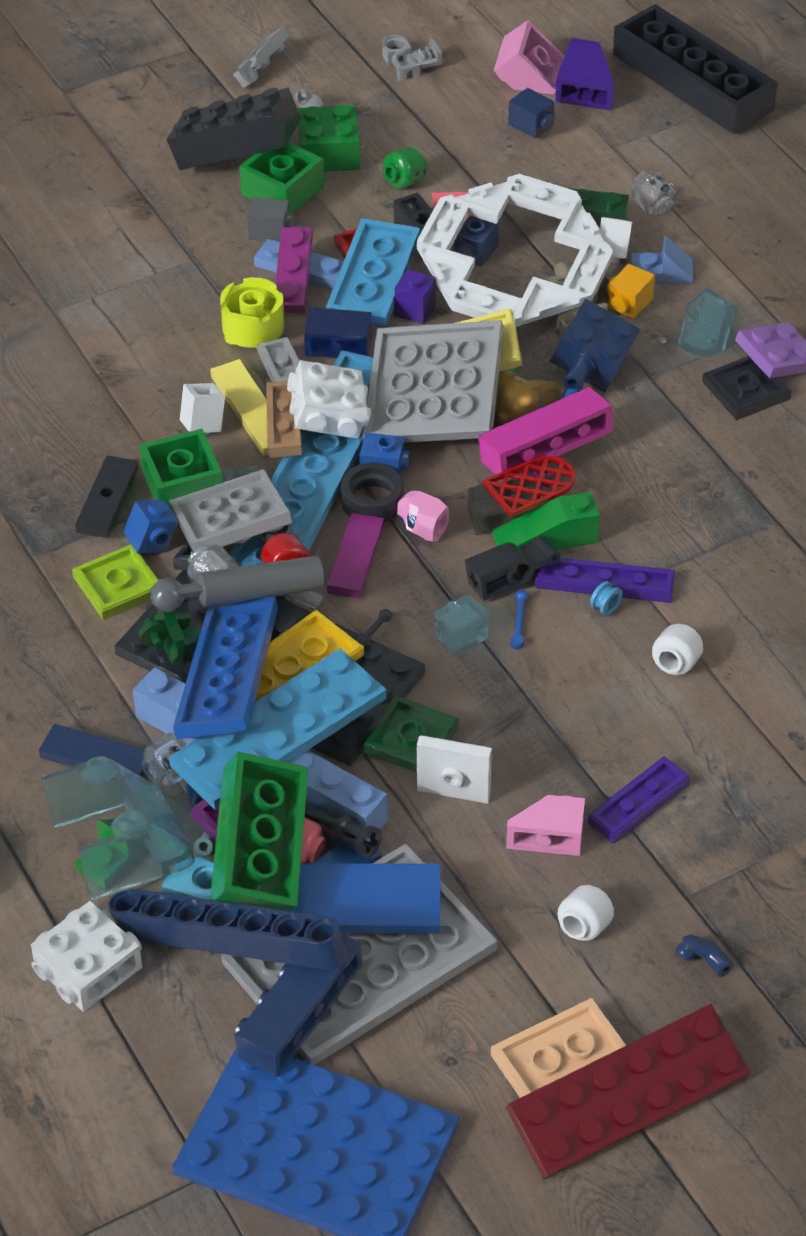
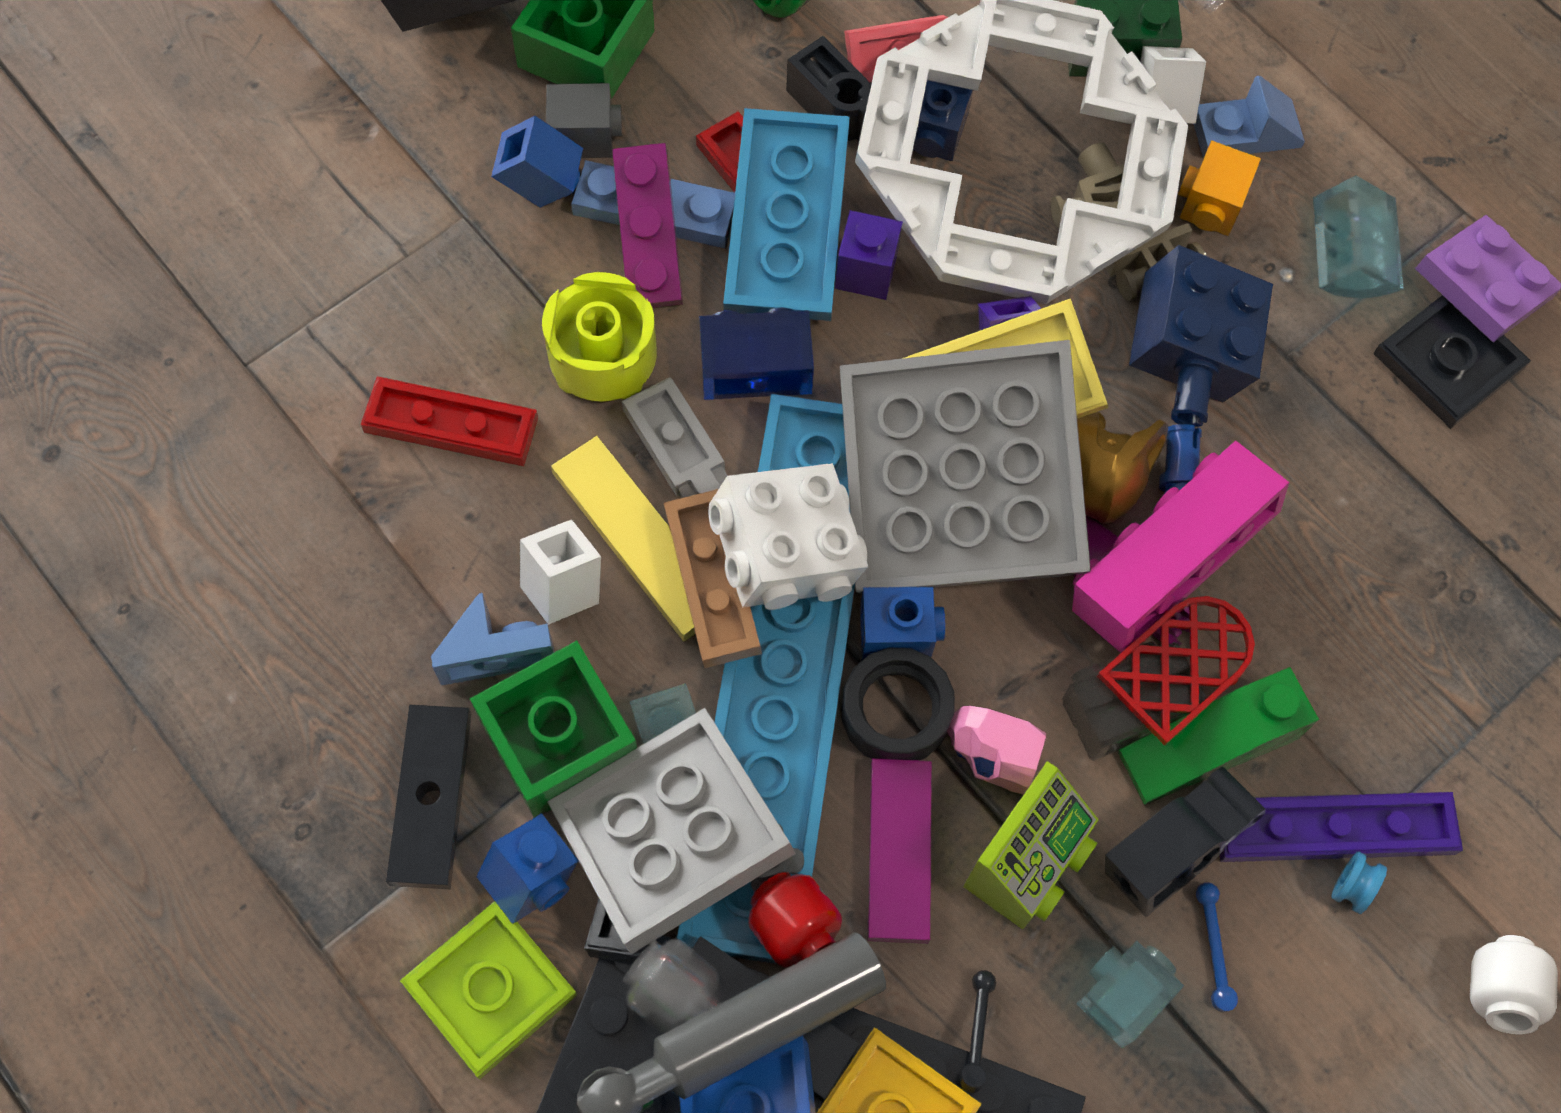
camera: 15 degrees left, 20 degrees up
(145, 431) = (475, 652): none -> medium blue slope
(160, 346) = (450, 421): none -> red tile
(239, 233) = (537, 162): none -> blue brick
(424, 550) = (1034, 849): none -> slope

